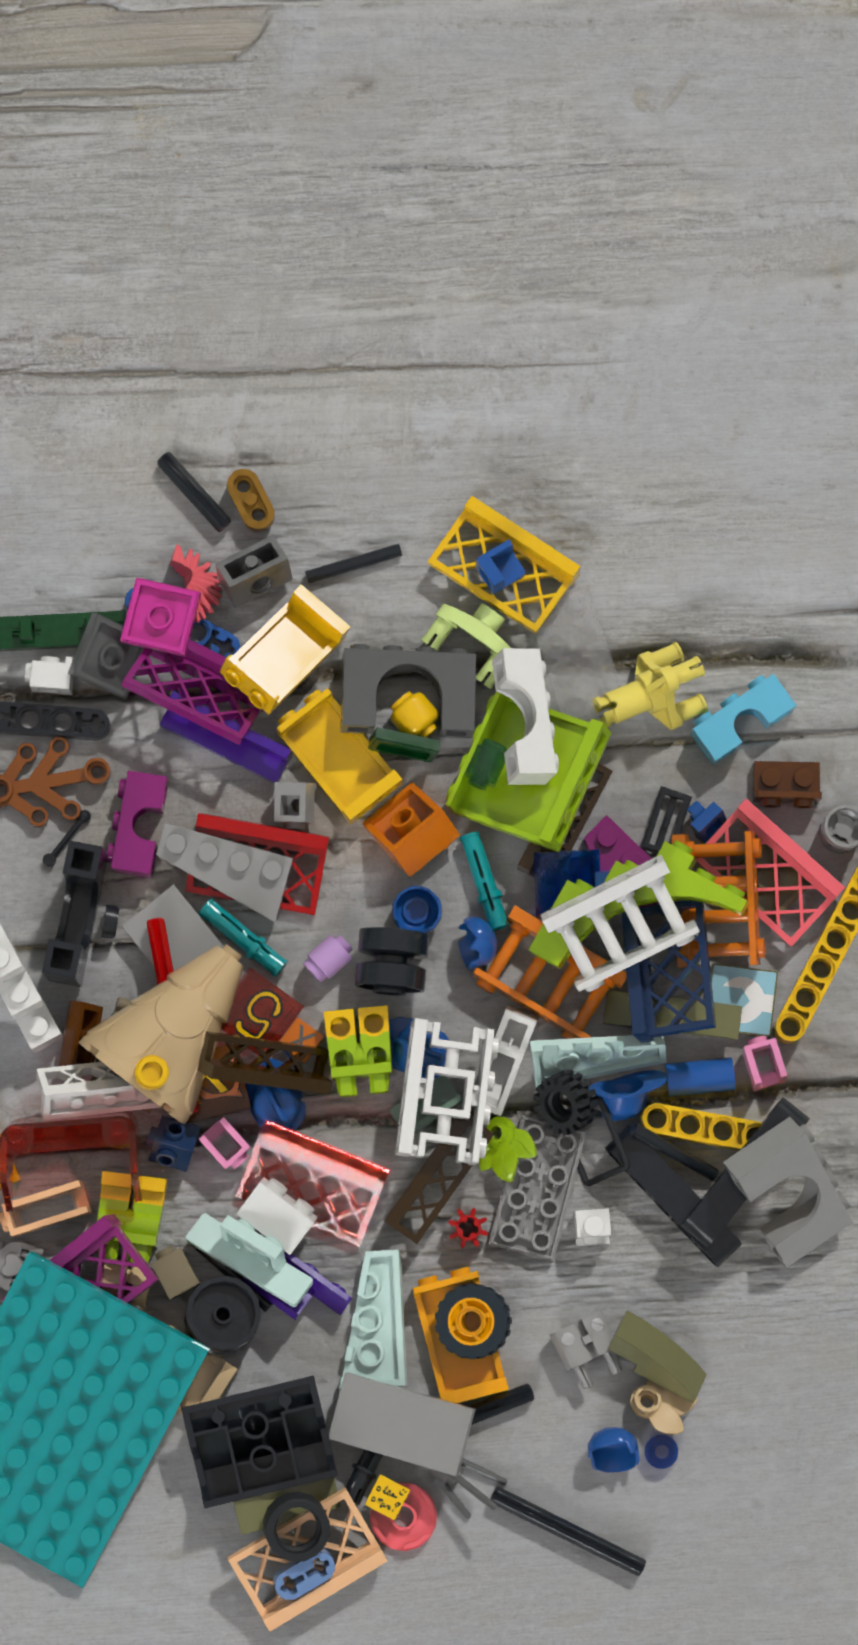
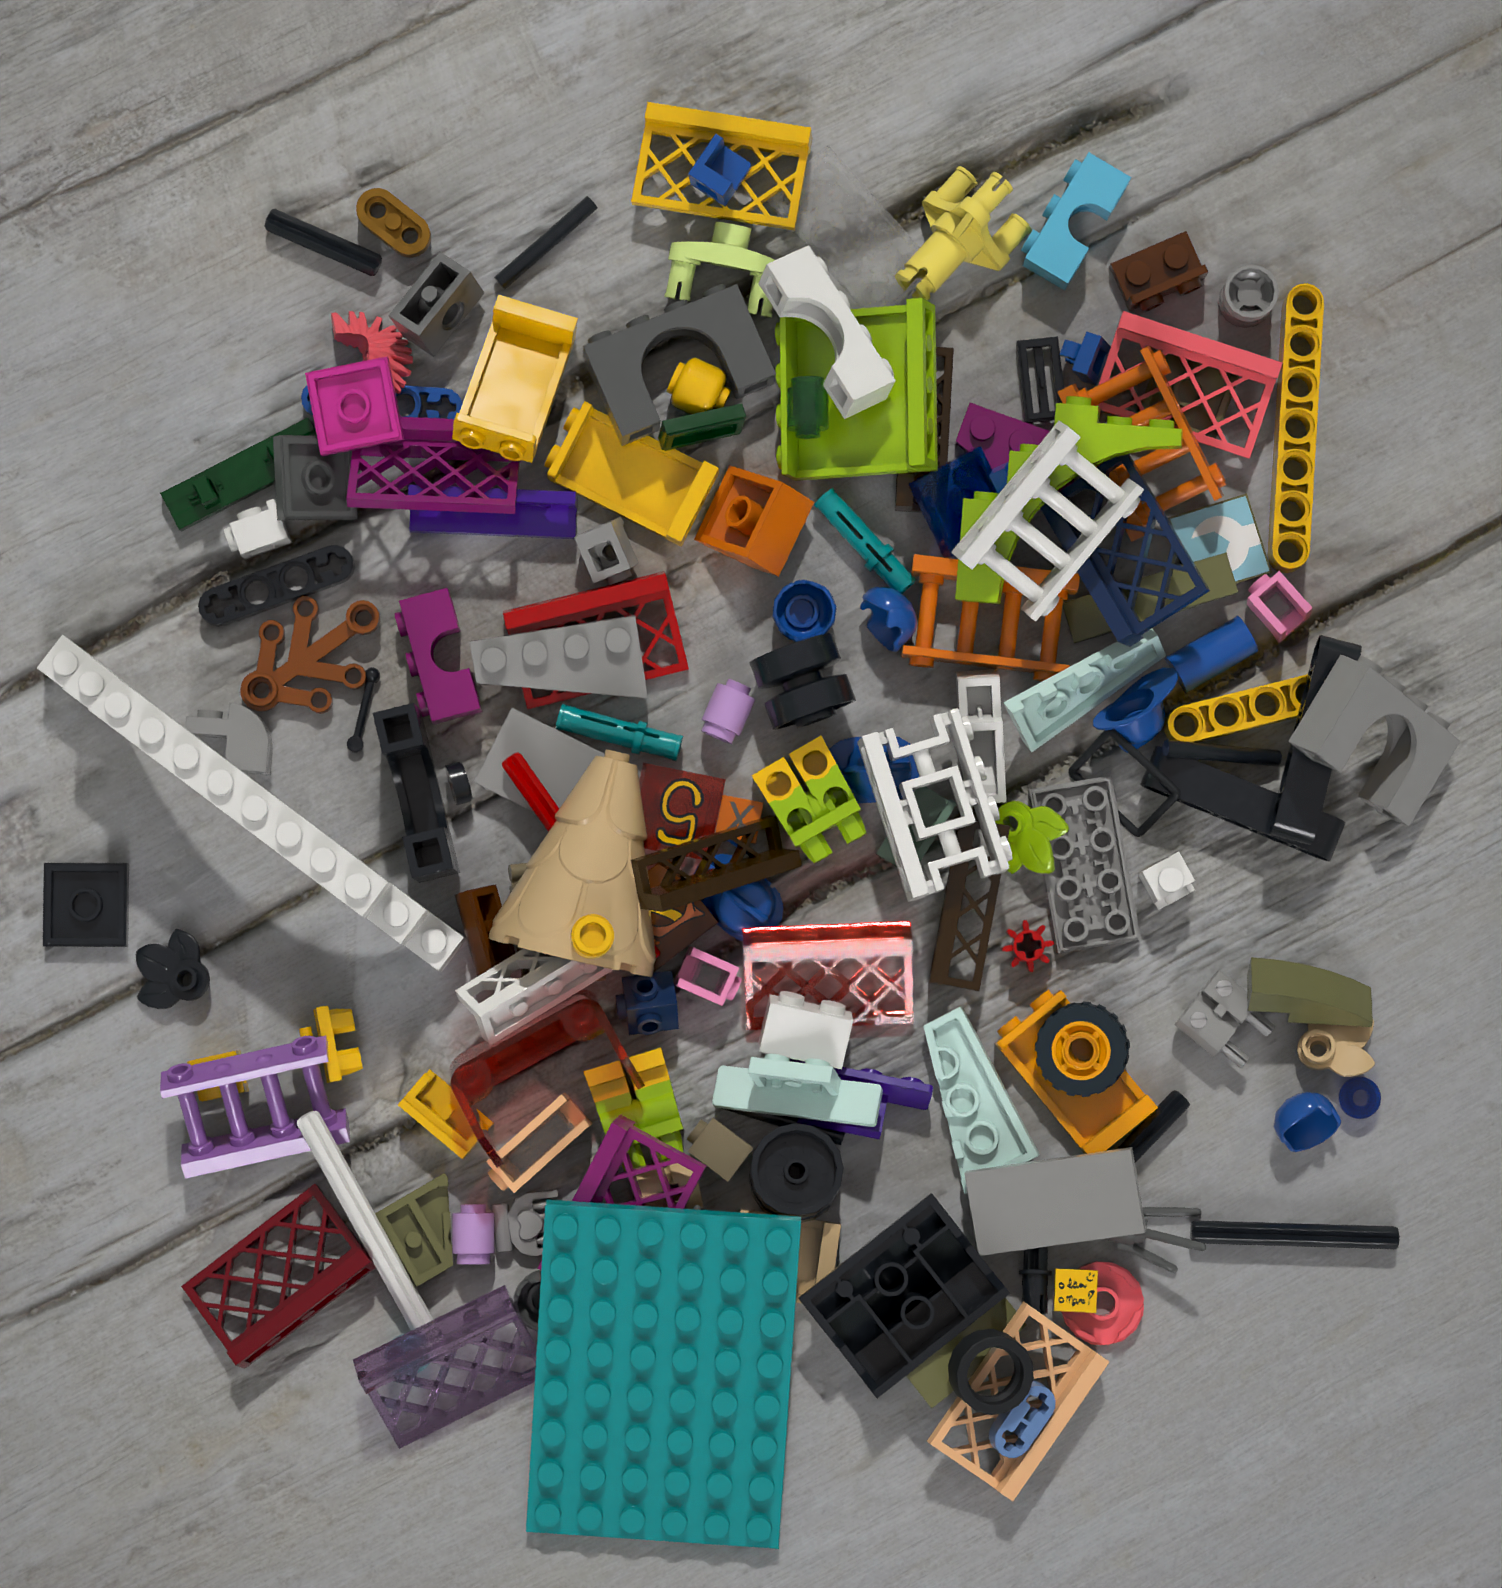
camera: 20 degrees left, 5 degrees up
(578, 1095) = (1085, 738): black tyre -> none

